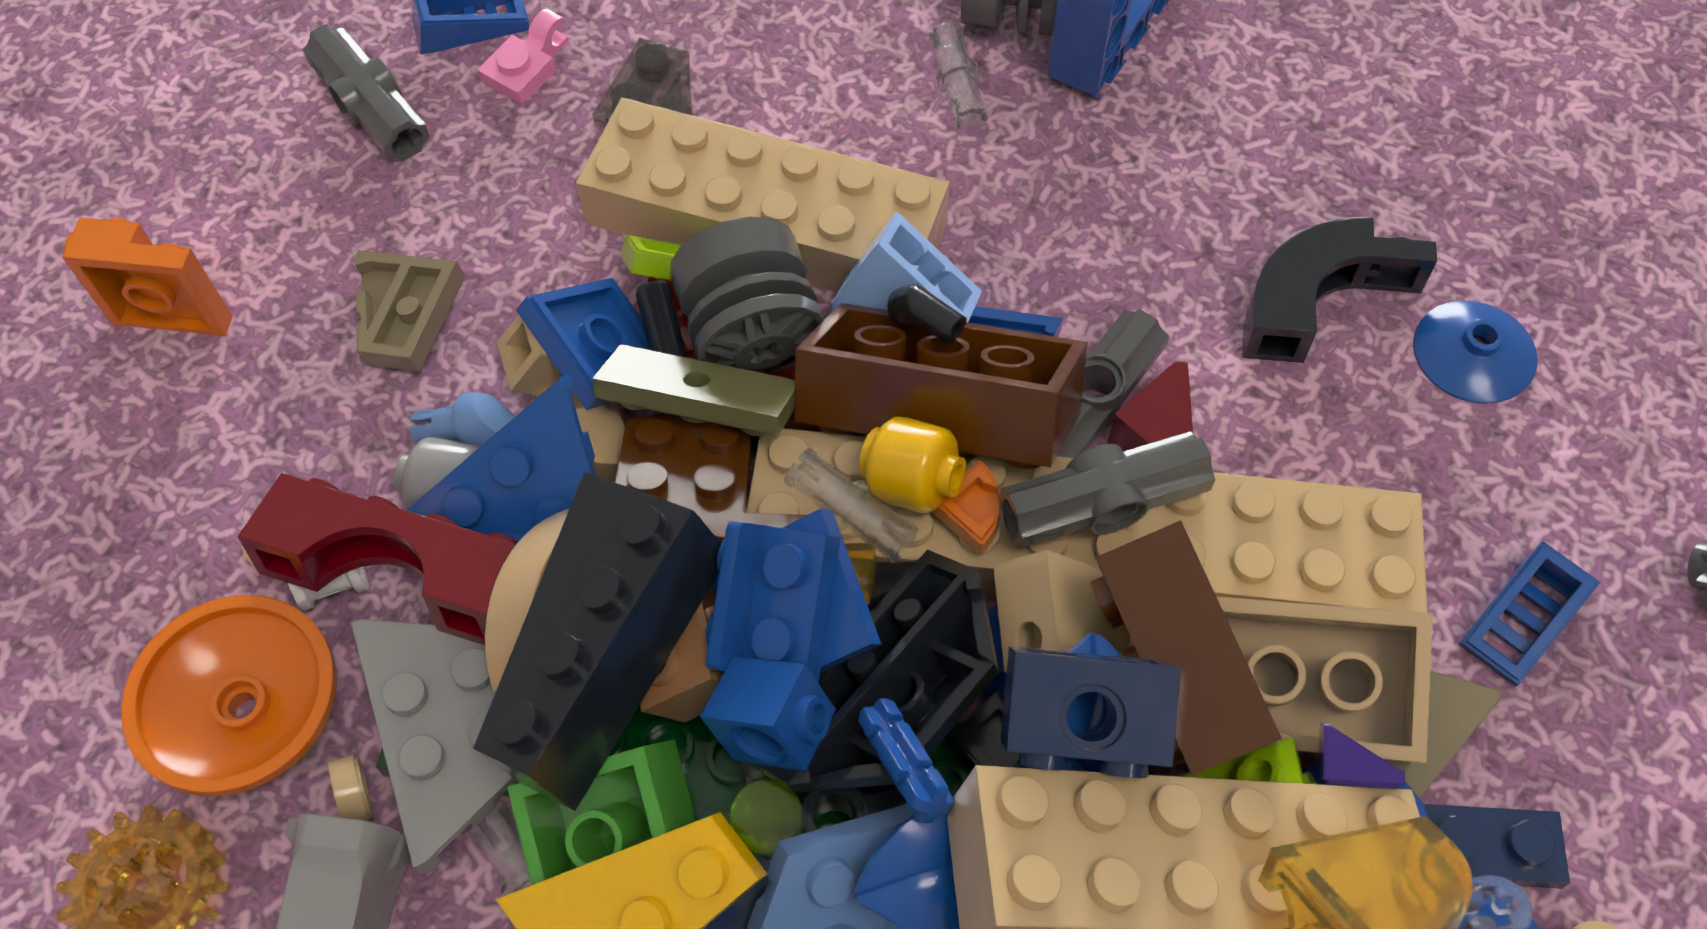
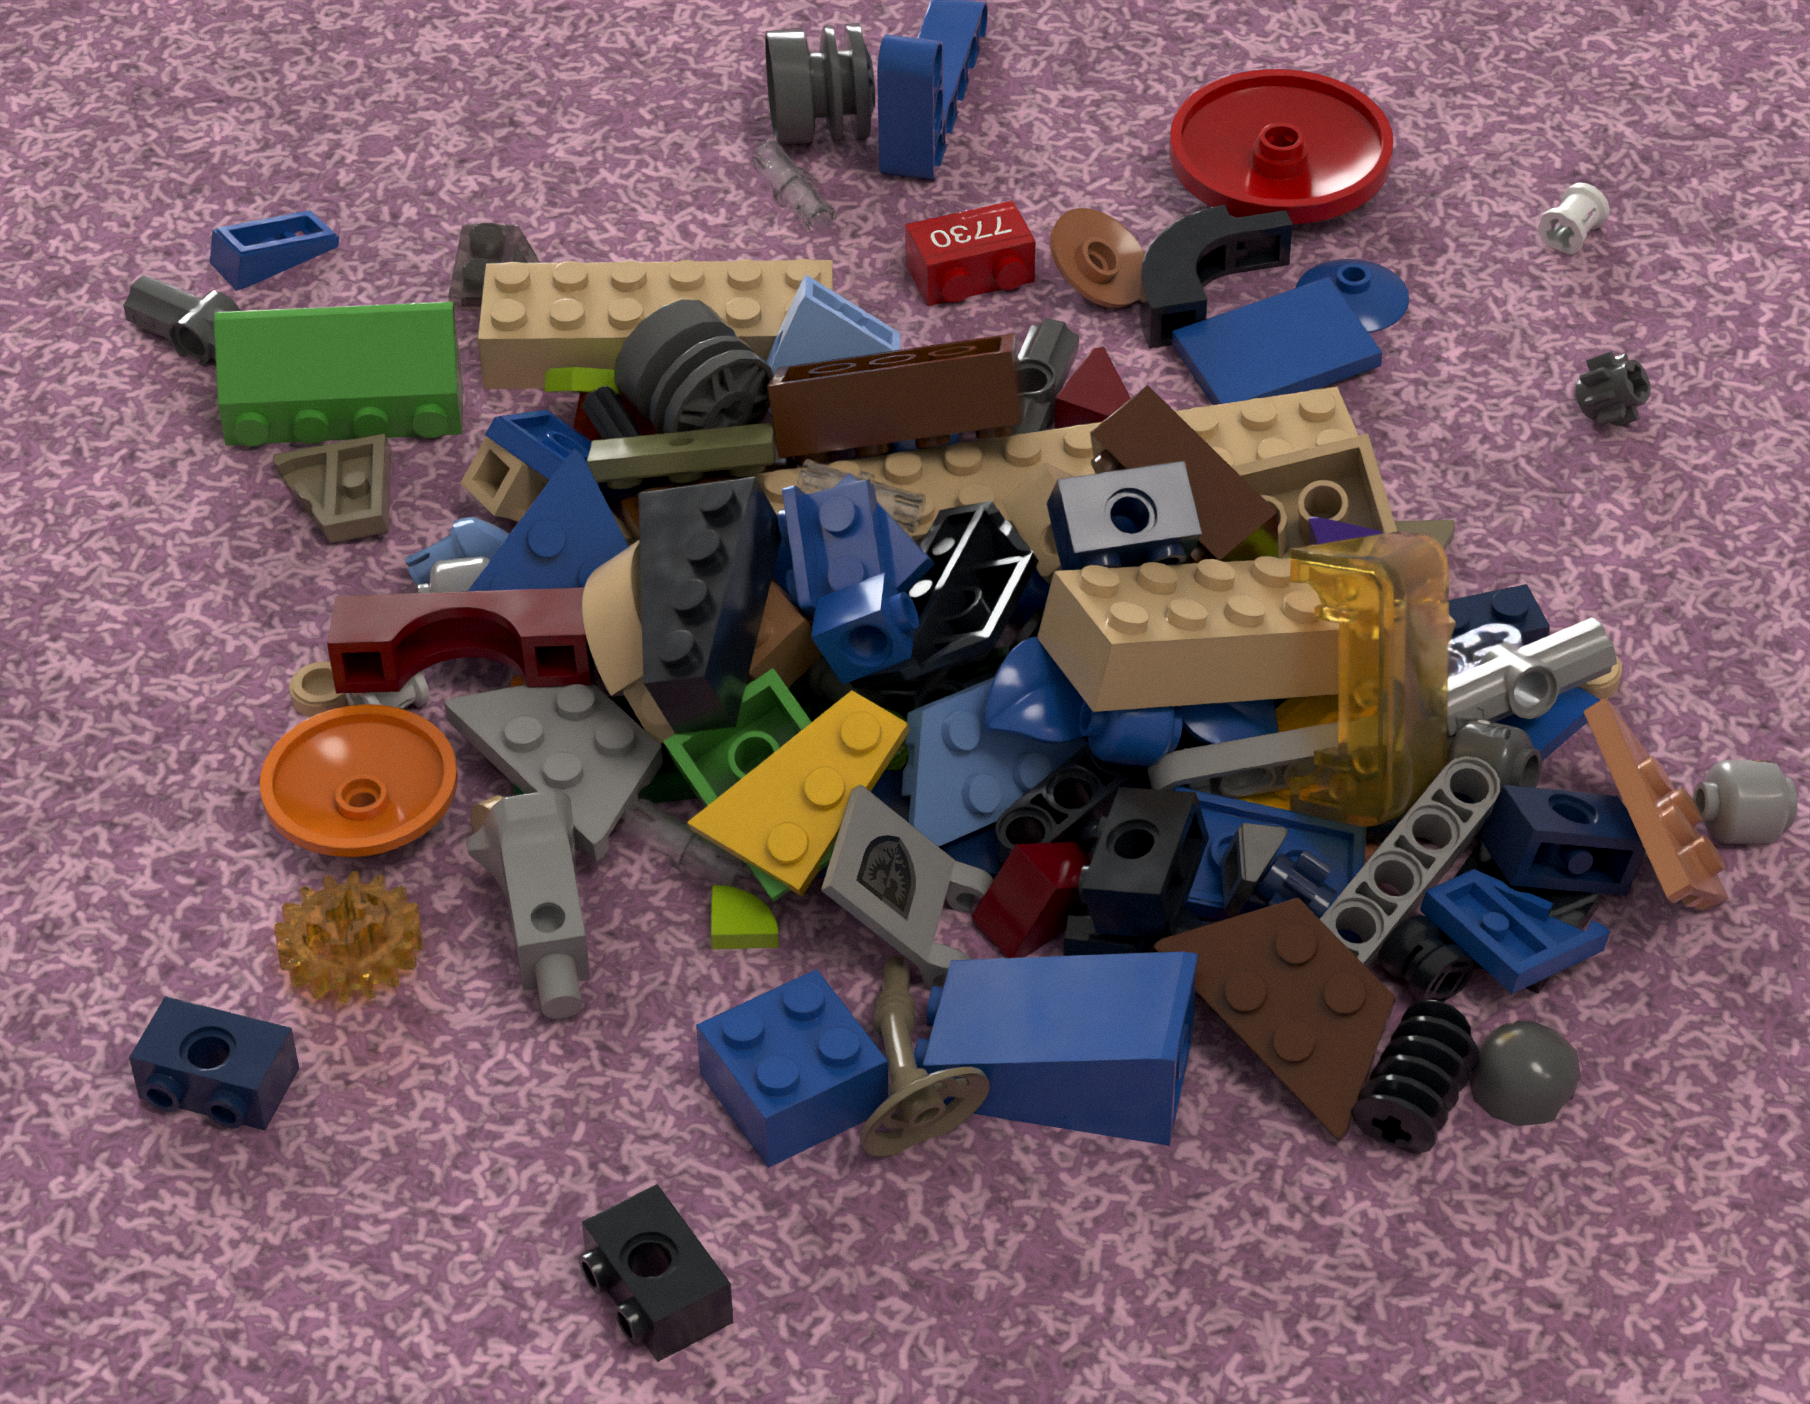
camera: 20 degrees left, 15 degrees down
(144, 281) = (92, 511): orange plate -> none
(439, 185) = (338, 373): none -> bright green slope
(524, 66) = (353, 274): bright pink plate -> none
(906, 761) = (991, 617): blue axle -> none
(912, 464) = (903, 448): yellow head -> none
(916, 307) = (861, 335): black arm -> none
(974, 510) = (961, 476): orange tile -> none
(1098, 200) = (970, 253): none -> red brick
(1106, 489) = (1059, 433): dark grey piece -> none
(1241, 236) = (1098, 257): none -> nougat dish
(1375, 403) = (1278, 345): none -> blue tile
(1457, 158) = (1281, 145): none -> red dish
(1560, 575) = (1471, 429): blue slope -> none

